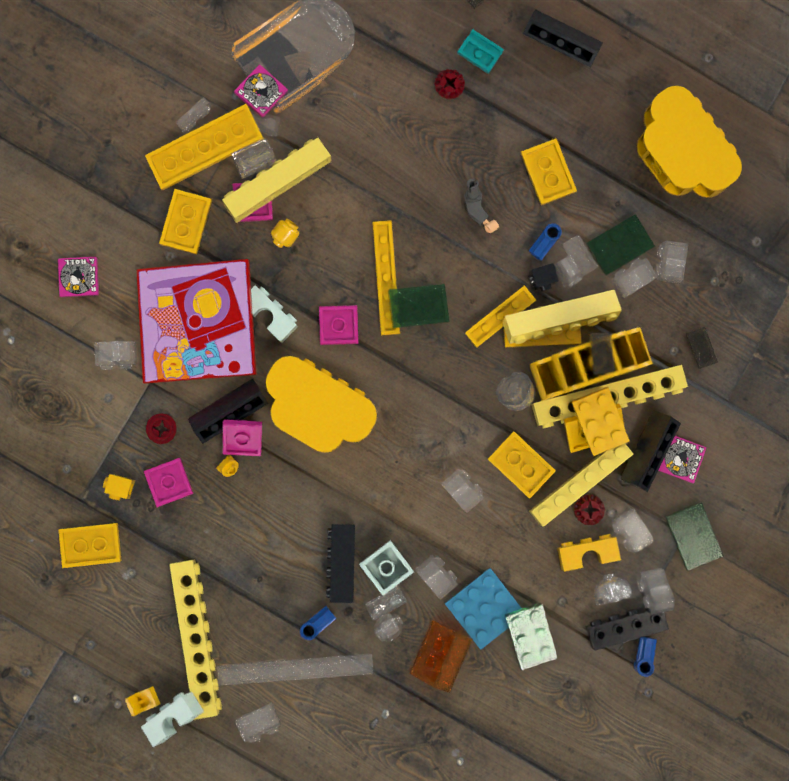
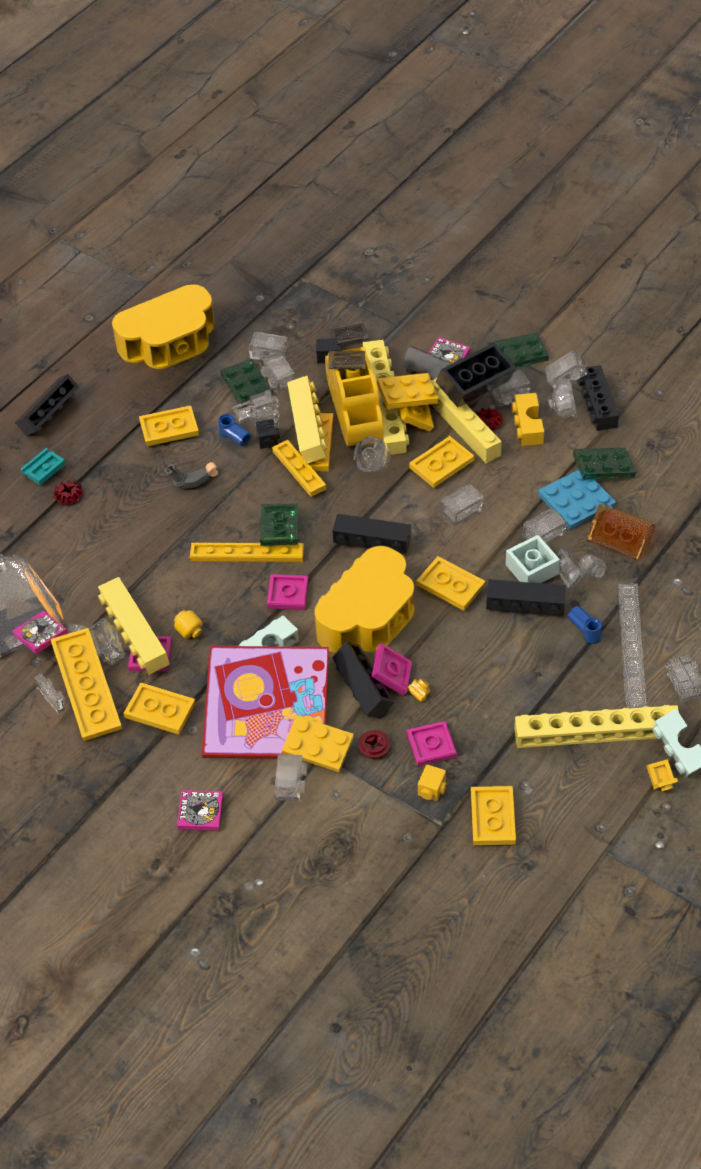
camera: 70 degrees left, 35 degrees down
(152, 376) = (318, 743): none -> yellow plate
(359, 486) = (450, 583): none -> yellow plate
(412, 401) = (371, 533): none -> black brick
(623, 494) = (475, 374): none -> black brick
(645, 653) = (631, 388): blue piece -> none
(673, 327) = (323, 347): none -> black brick

